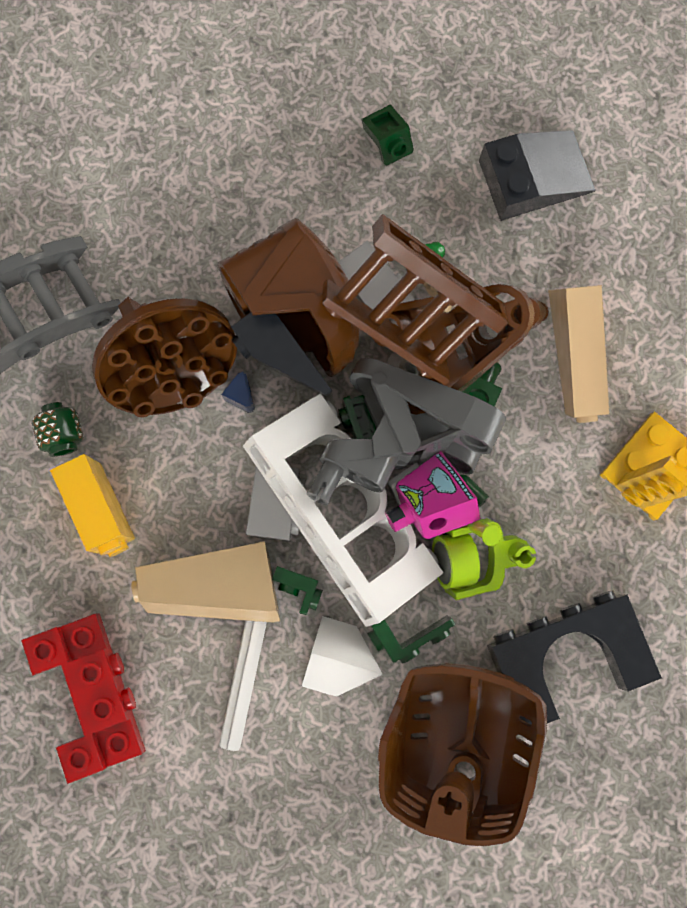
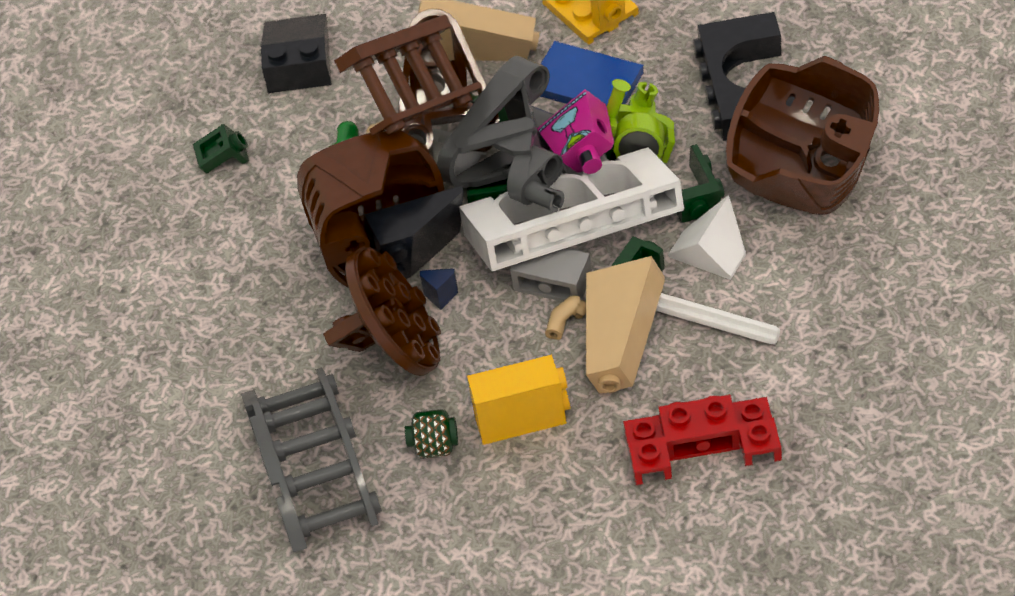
camera: 65 degrees left, 30 degrees down
(229, 523) = (561, 313): none -> tan arm
(546, 483) = (579, 69): none -> blue tile

